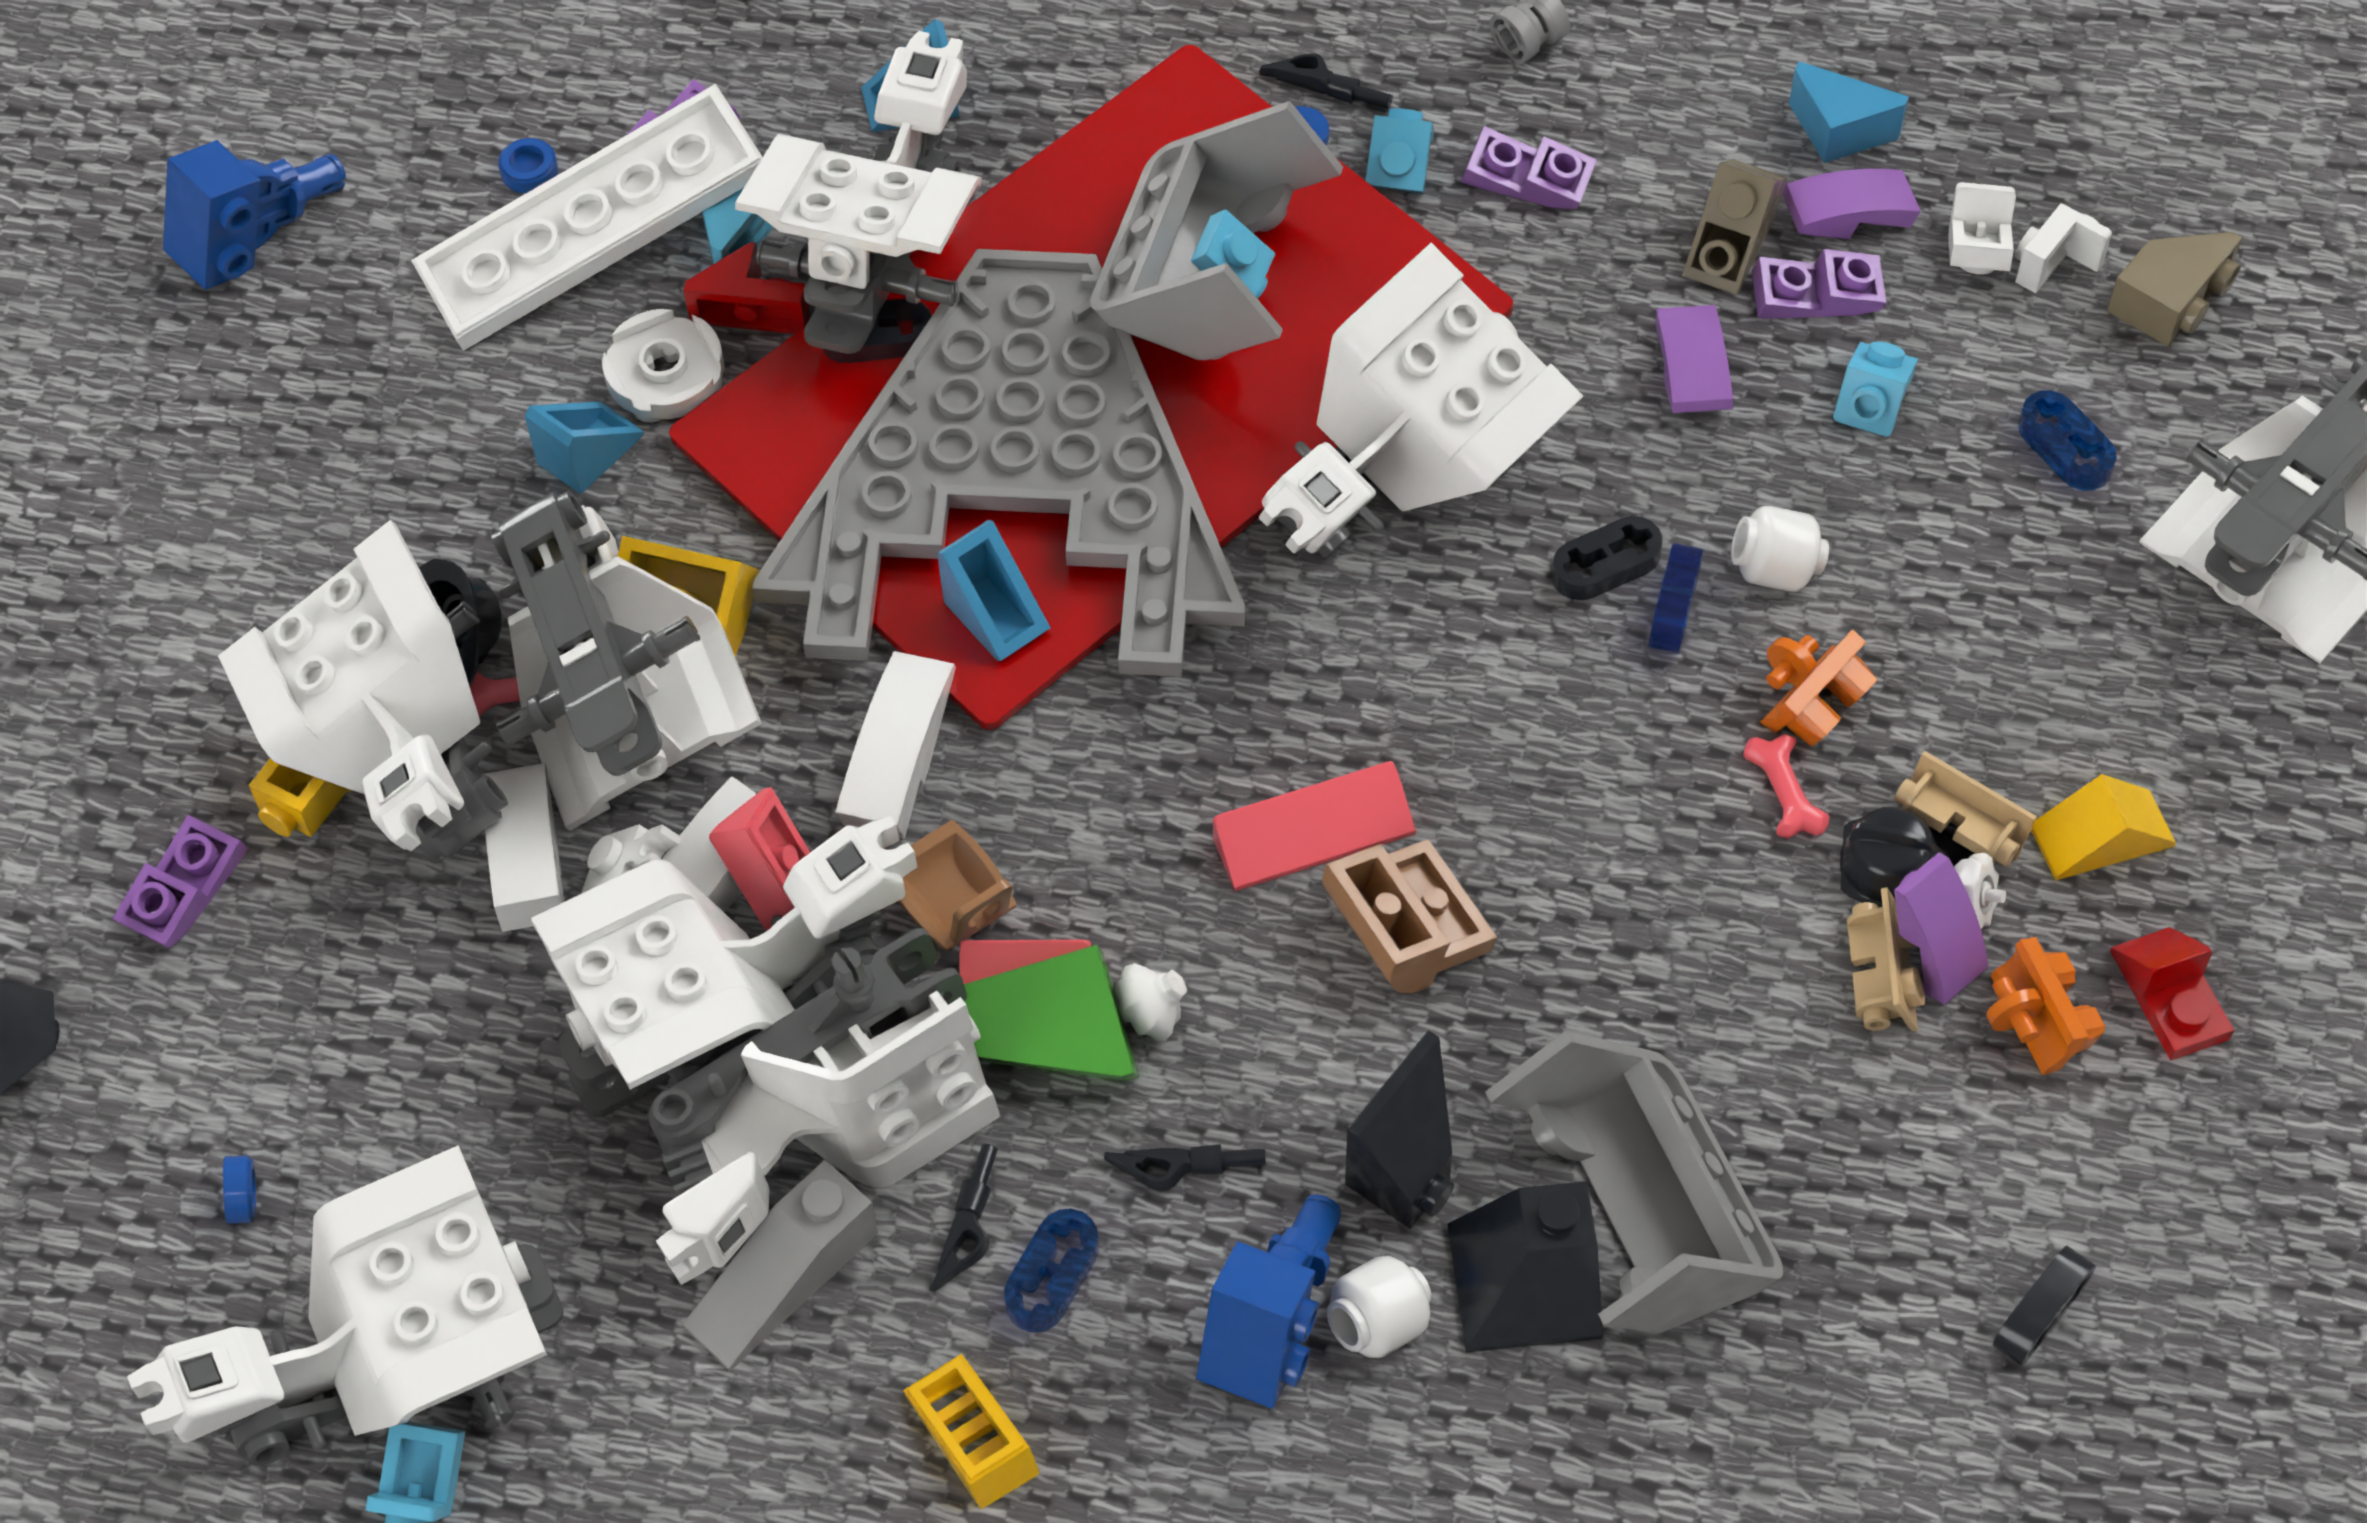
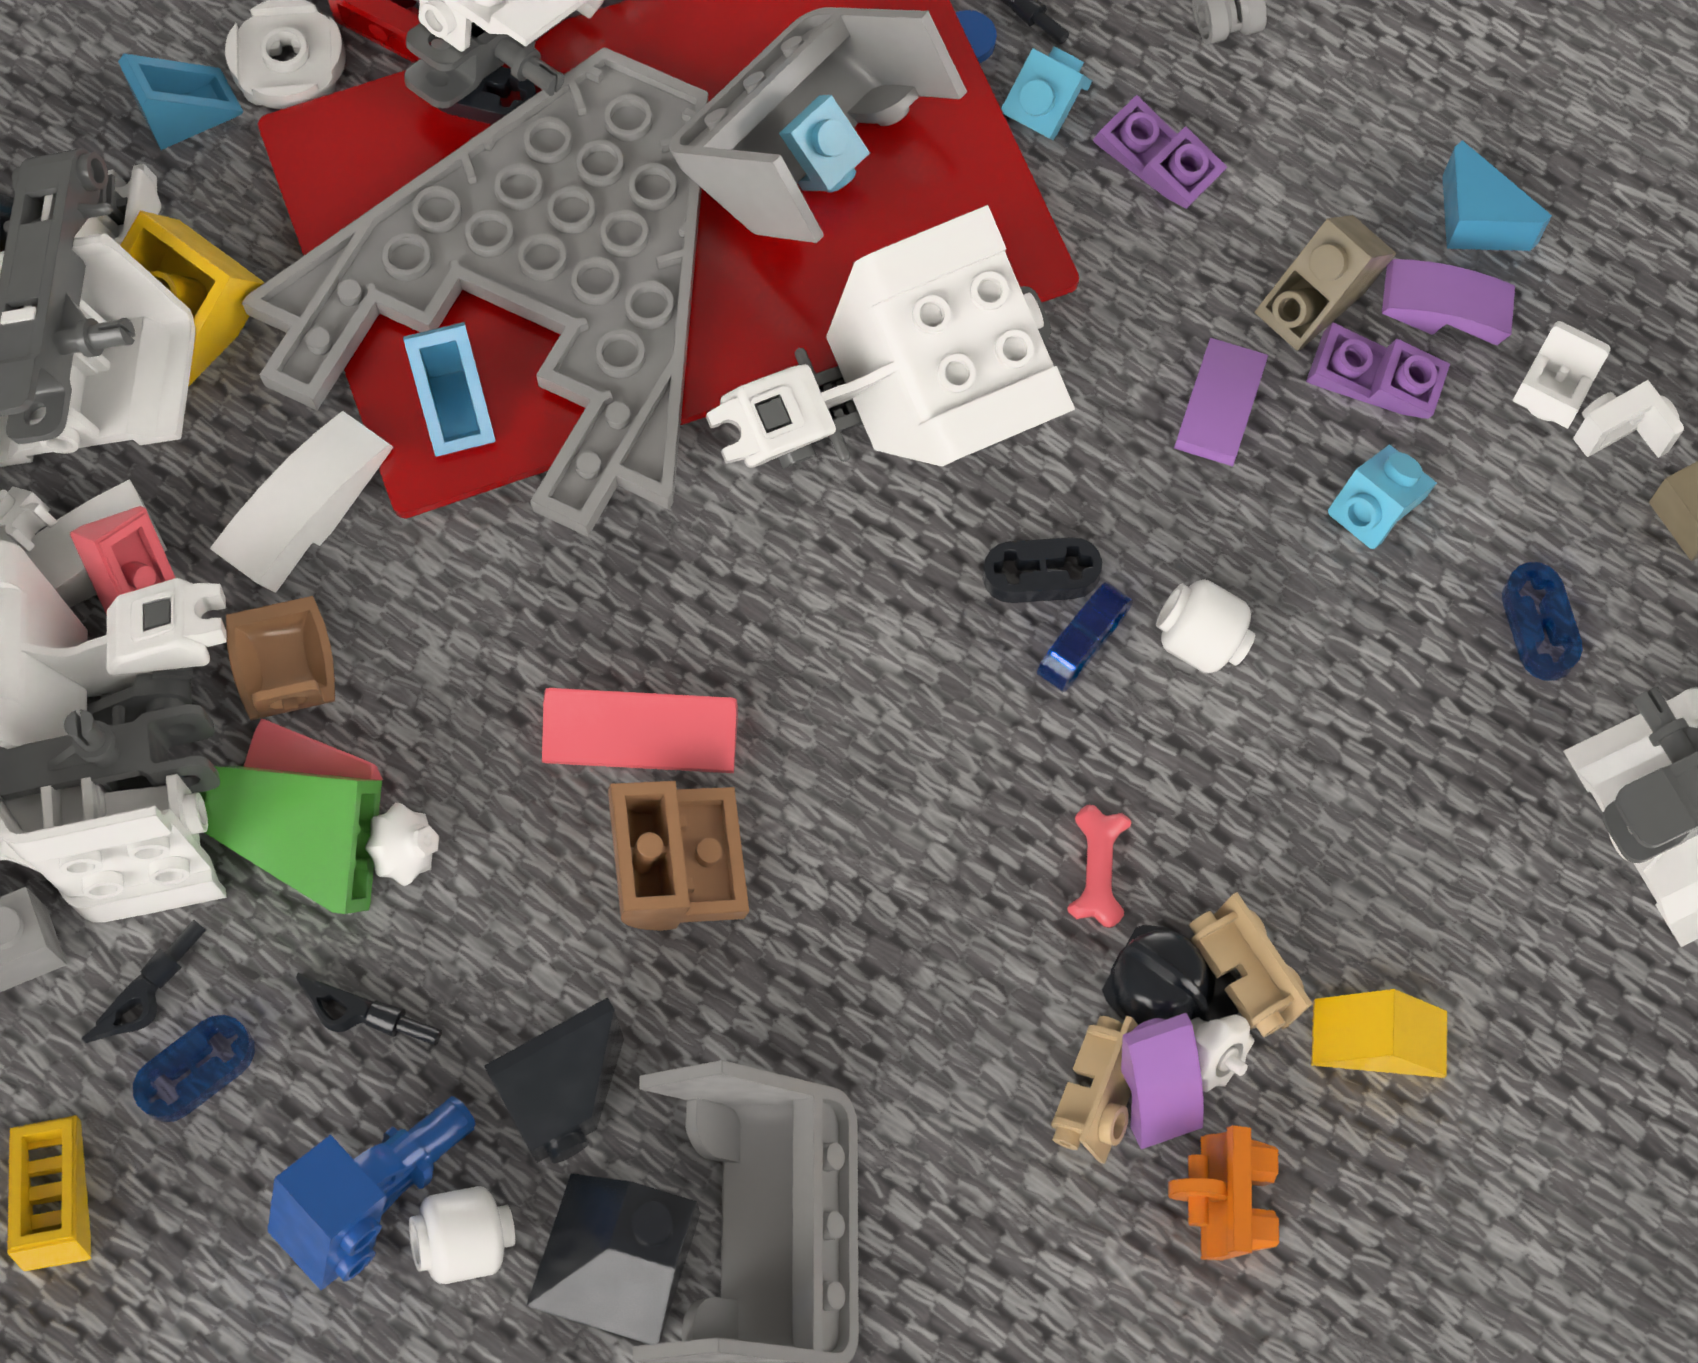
camera: 20 degrees right, 10 degrees up
(1836, 669) = (1149, 793): orange hips -> none
(2172, 991) = (1367, 1228): red slope -> none

